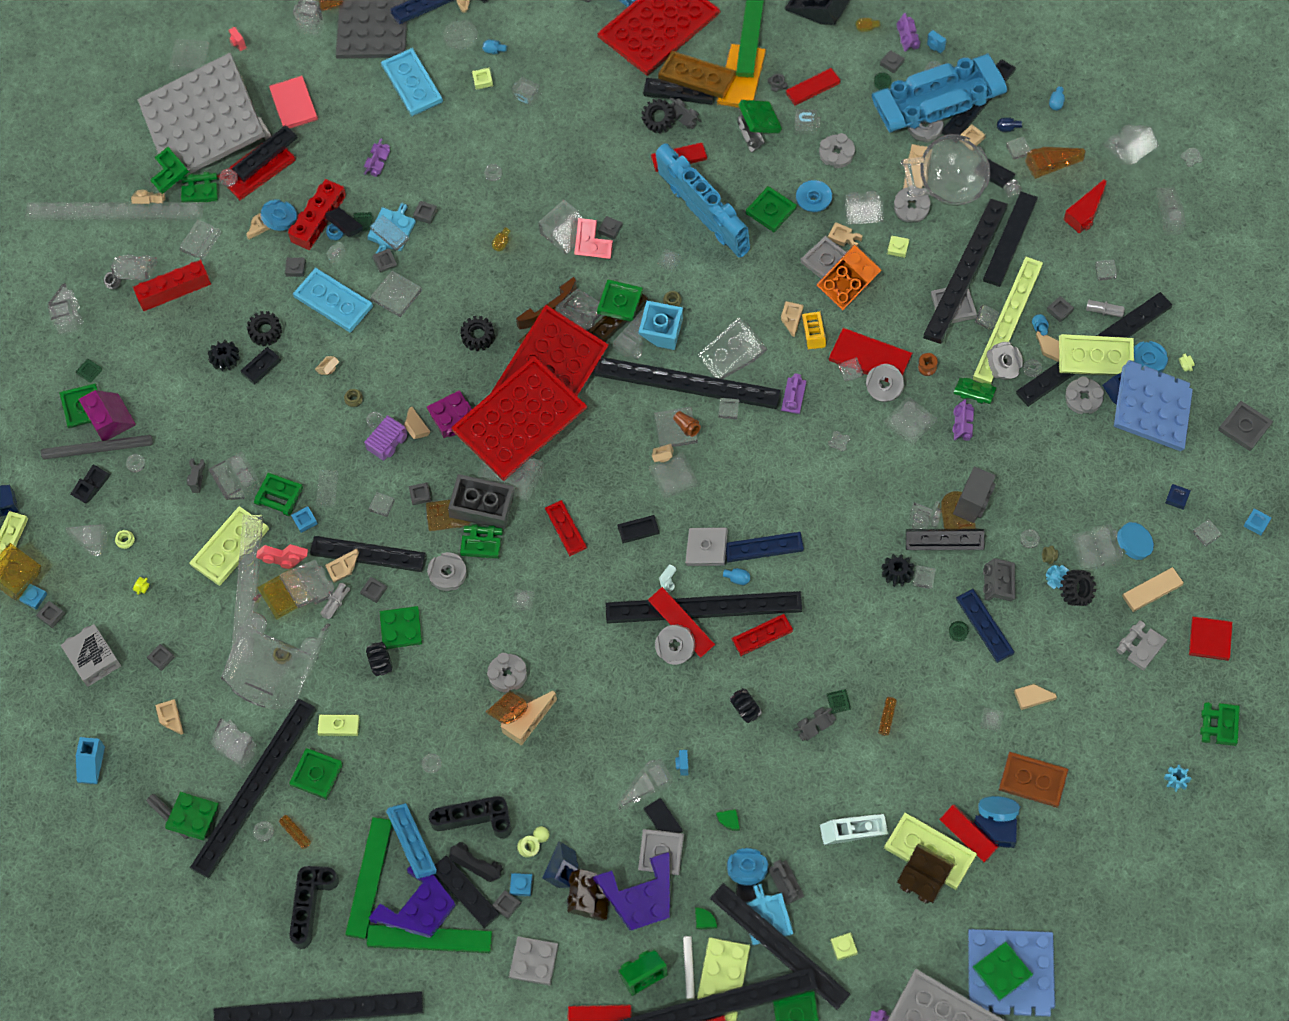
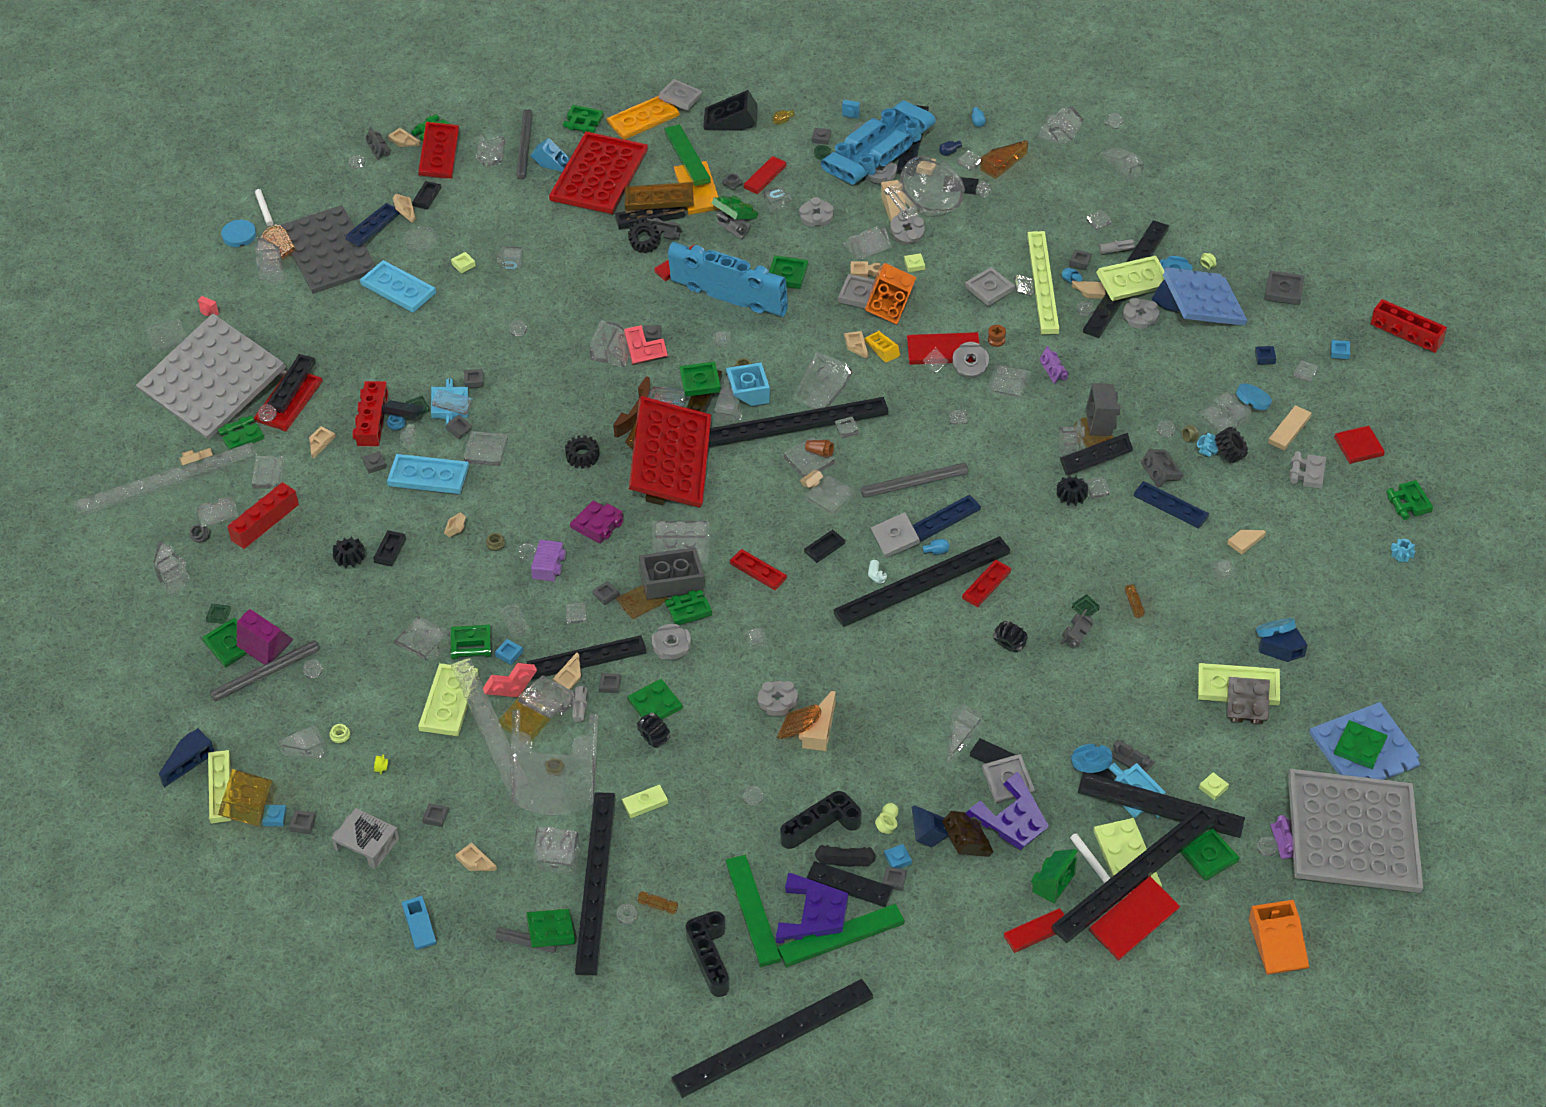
camera: 30 degrees left, 15 degrees down
(90, 485) = (277, 702): black slope -> none
(172, 170) = (209, 425): green plate -> none
(195, 479) = (381, 659): dark grey plate -> none
(269, 336) = (375, 526): black tyre -> none
(278, 215) = (334, 427): dark azure tile -> none
(293, 102) = (292, 338): coral tile -> none
(316, 773) = (648, 846): green plate -> none
(379, 152) = (401, 356): medium lavender hinge -> none
(411, 841) = (775, 861): dark azure tile -> none
(415, 425) = (569, 542): tan tile -> none
(493, 47) = (457, 237): dark azure cylinder -> none
(500, 240) = (558, 375): clear yellow cylinder -> none
(519, 418) = (669, 491): red plate -> none
(533, 961) = (948, 912): light grey plate -> none
(668, 653) = (916, 626): light grey plate -> none
(676, 615) = (911, 597): red tile -> none
(682, 762) = (983, 703): dark azure plate -> none
(704, 919) = (1080, 816): green tile -> none
(728, 819) = (1050, 731): green tile -> none
(759, 493) = (913, 480): none -> dark grey axle
(794, 394) = (896, 397): medium lavender hinge -> none
(810, 190) = (819, 249): dark azure dish -> none
(853, 829) = (1162, 693): light aqua slope -> none
(907, 32) = (821, 112): medium lavender hinge -> none
(958, 631) = (1152, 516): clear green tile -> none
(965, 271) = (985, 258): black plate -> none
(969, 833) = (1261, 657): red tile -> none
(974, 390) = (1044, 339): green plate -> none
(997, 365) = (1061, 308): light grey plate -> none
(1010, 239) = (1005, 226): black tile -> none
(1033, 779) = (1287, 599): dark orange tile -> none
(1082, 213) = (1053, 186): red slope -> none

